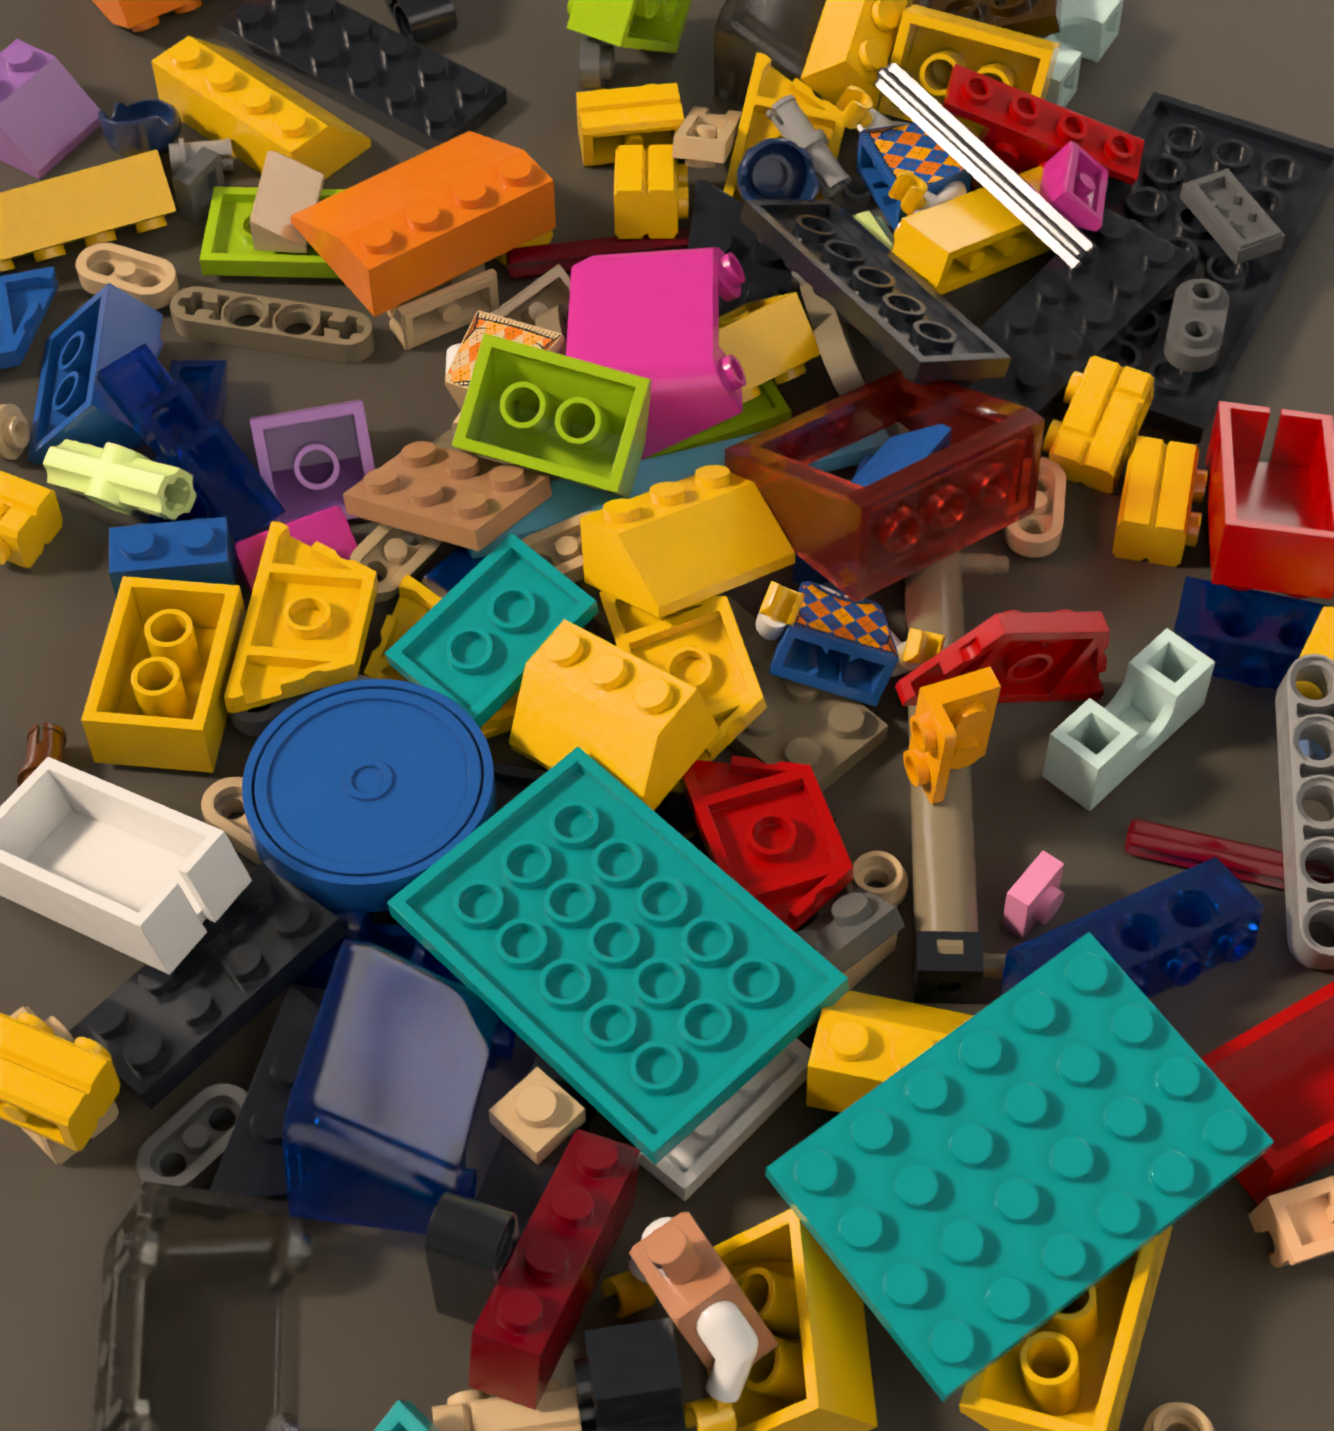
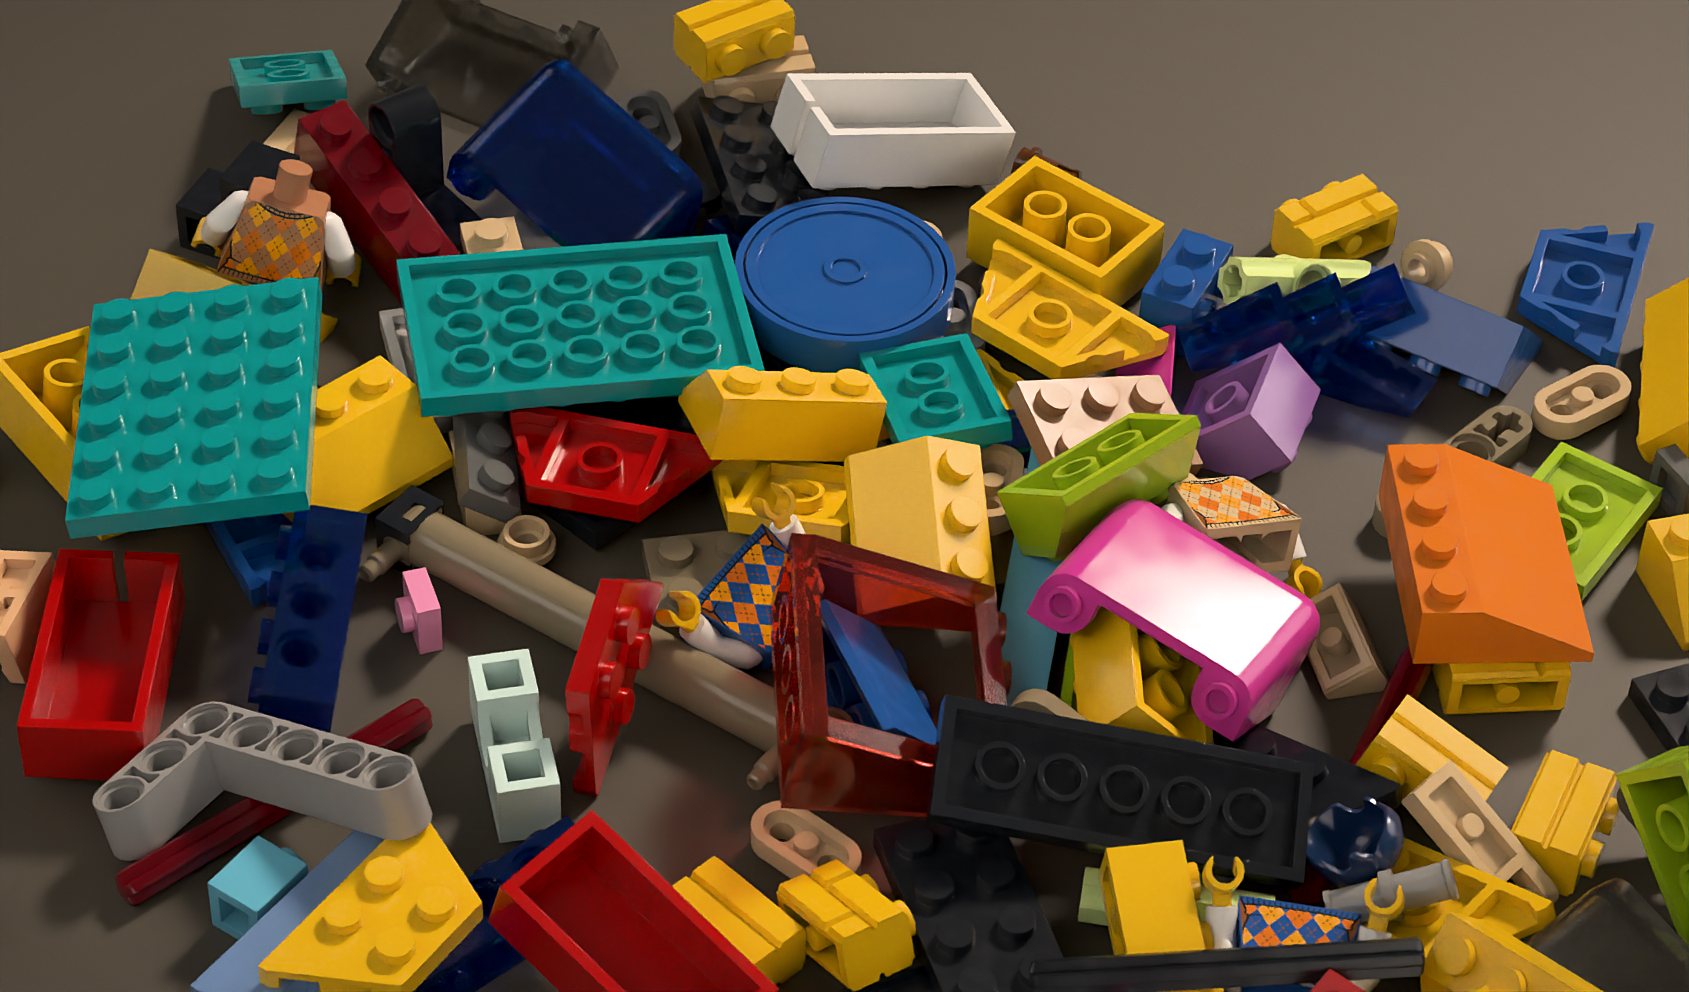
camera: 120 degrees right, 10 degrees down
(283, 191) = (1595, 503): tan slope -> none
(445, 310) = (1381, 590): tan slope -> none
(950, 729) = (567, 550): light orange bracket -> none

